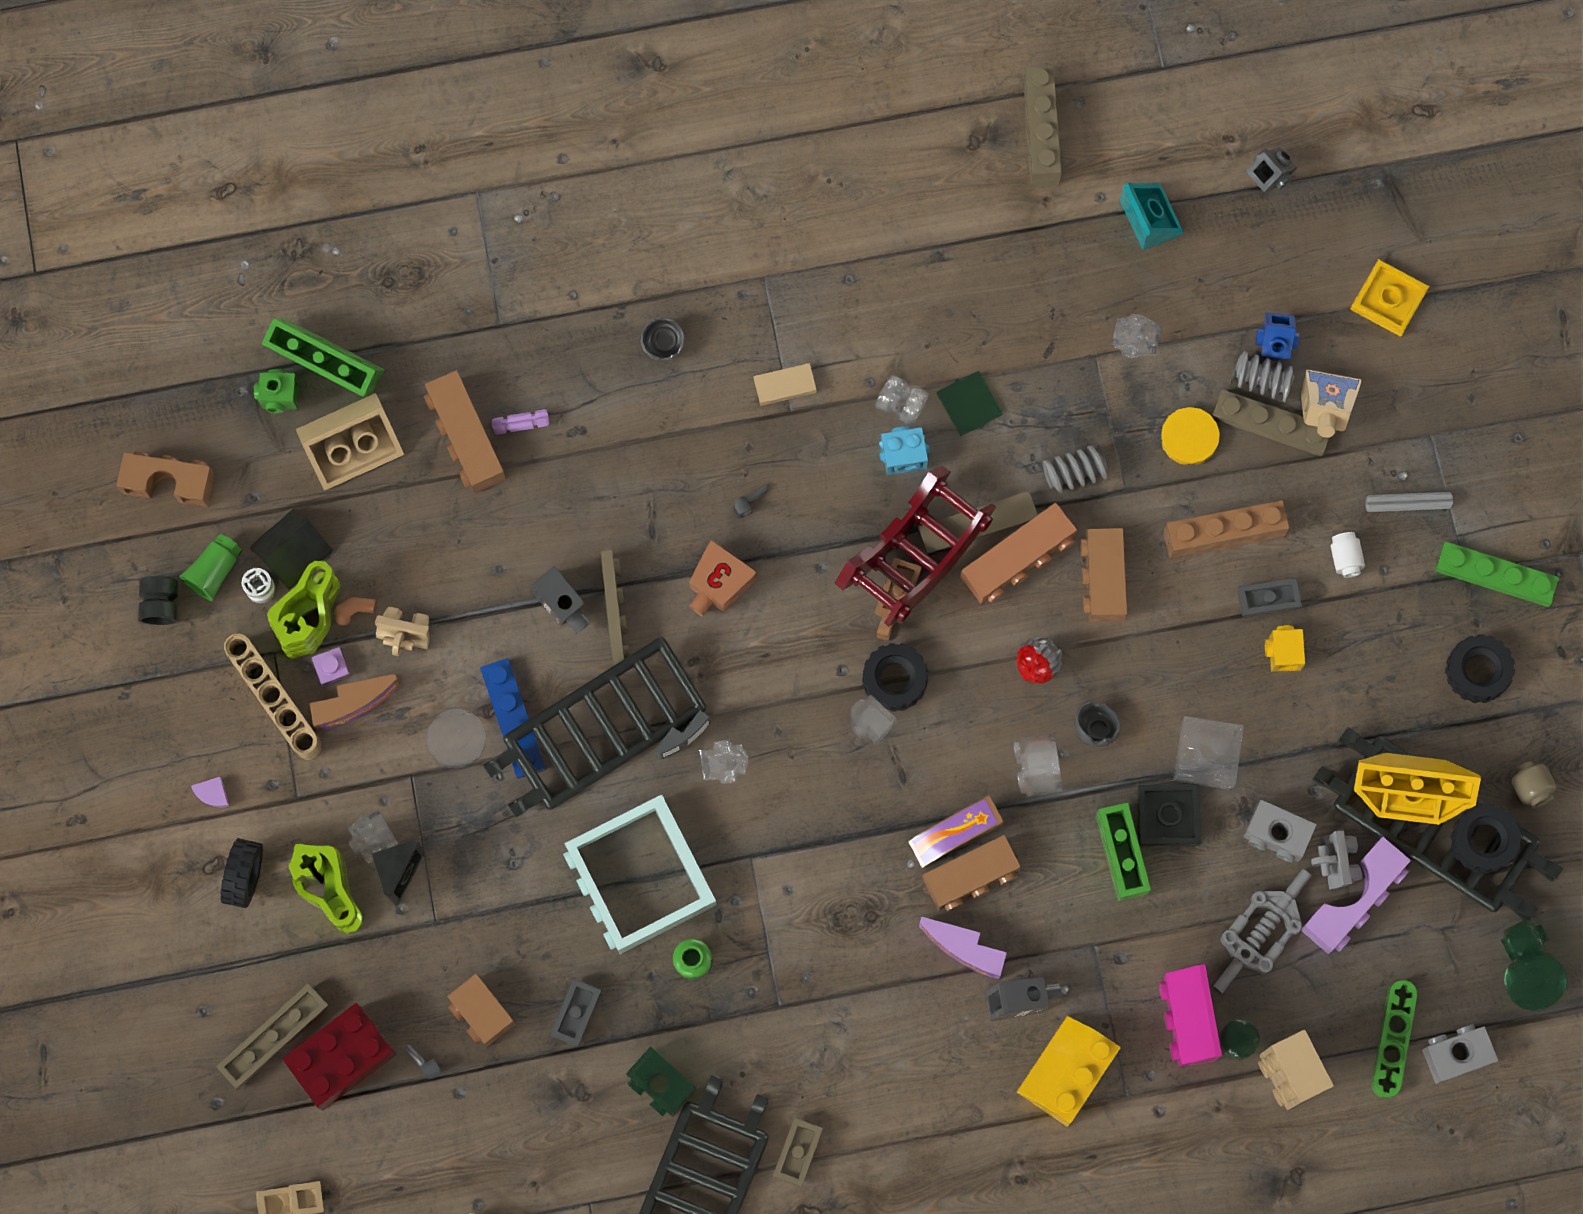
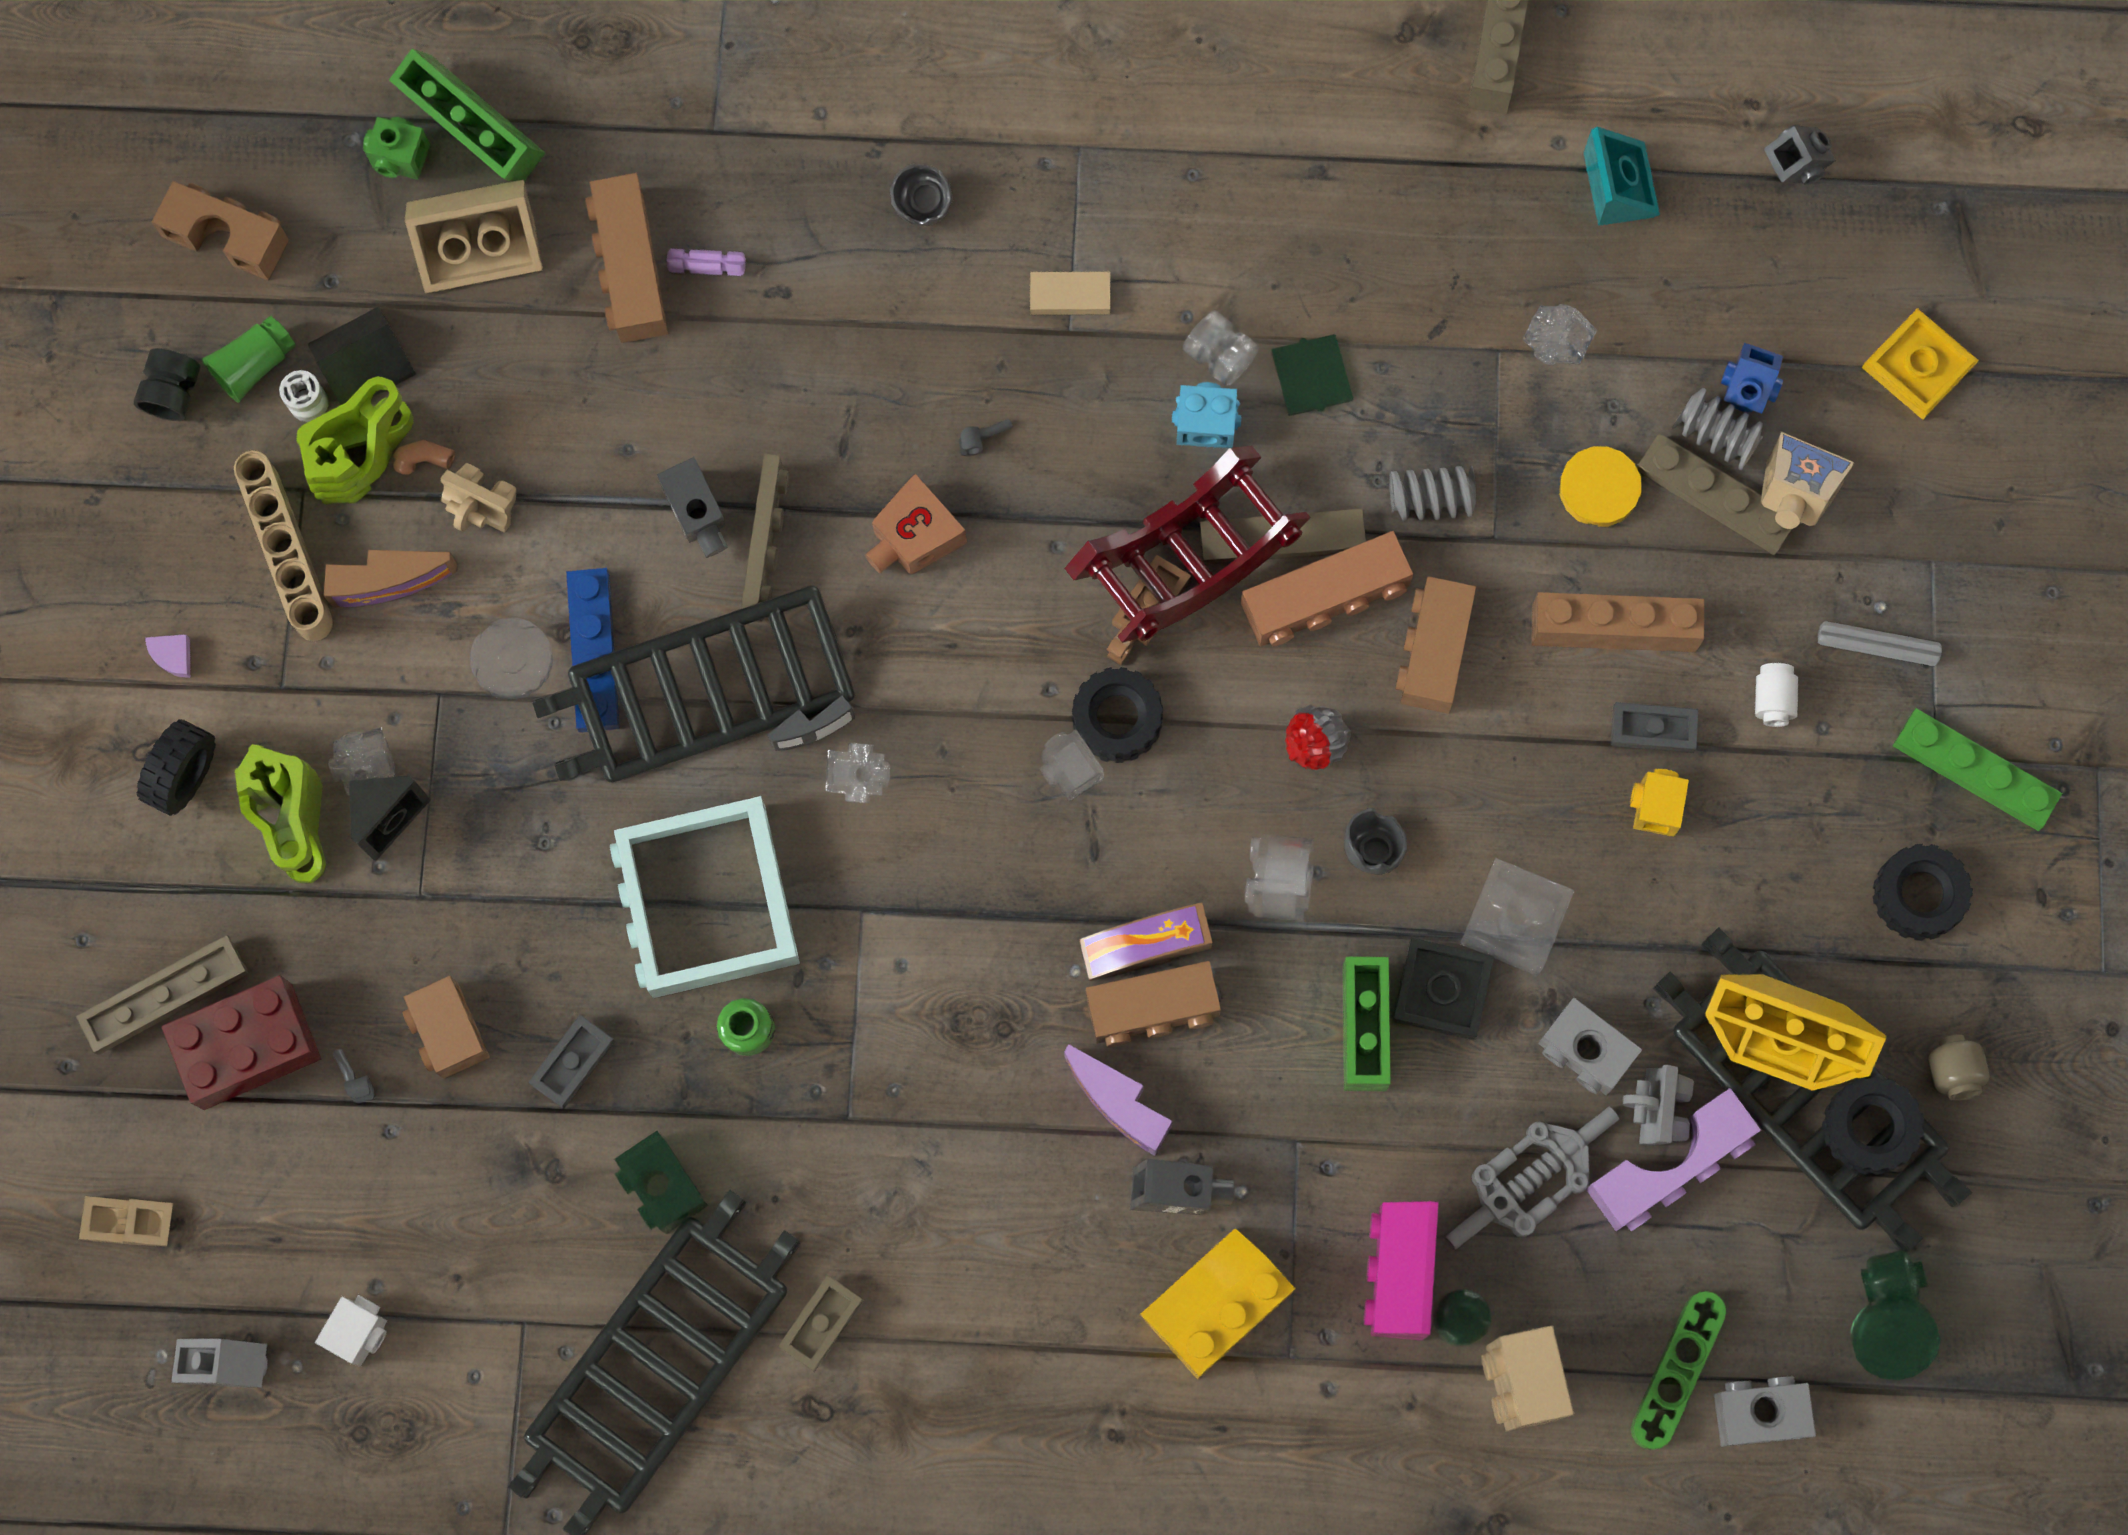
camera: 15 degrees right, 0 degrees up
(331, 666) = (371, 525): lavender plate -> none

